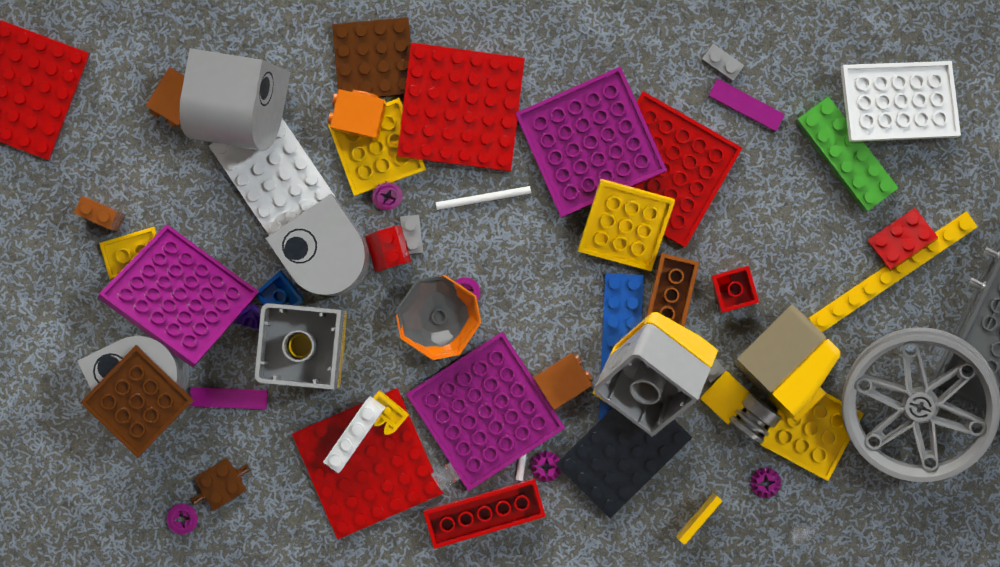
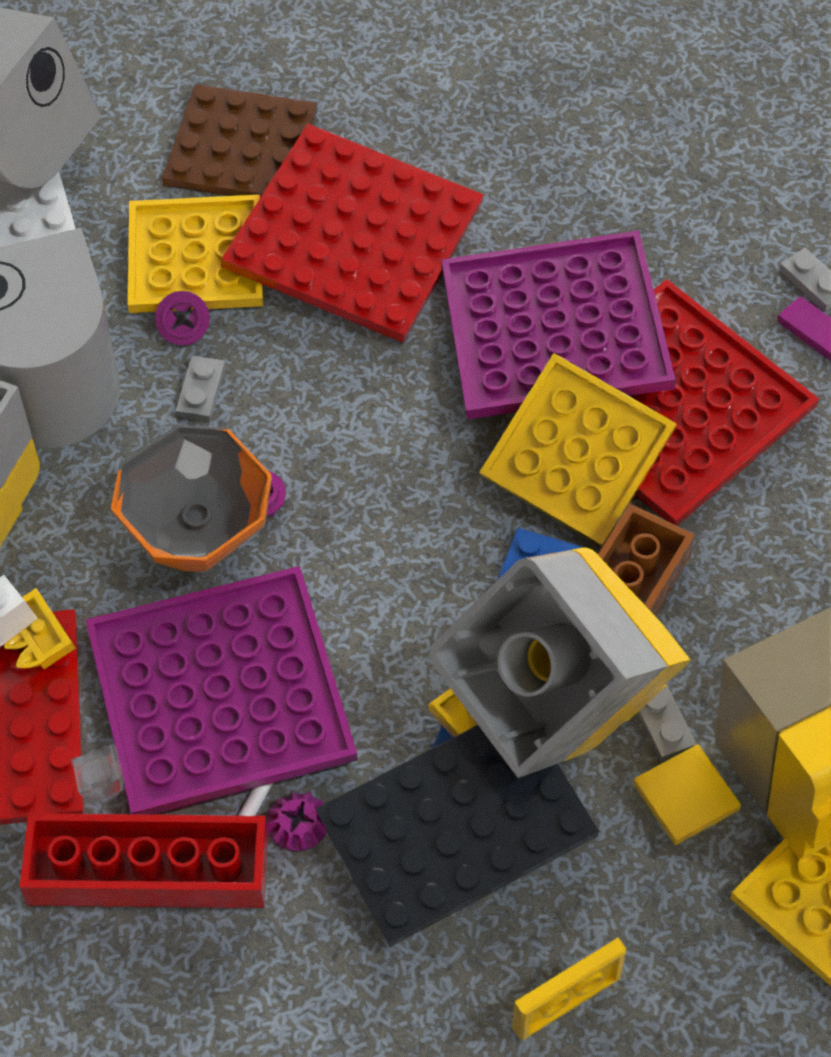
camera: 20 degrees right, 30 degrees down
(357, 114) = (181, 182): orange brick -> none
(388, 248) = (153, 389): red slope -> none
(483, 197) = (344, 367): white piece -> none
(563, 380) = (383, 675): dark orange brick -> none
(734, 289) = (747, 603): red slope -> none
(755, 418) = (734, 830): flat silver wheel -> none
(758, 477) = (711, 983): magenta gear -> none

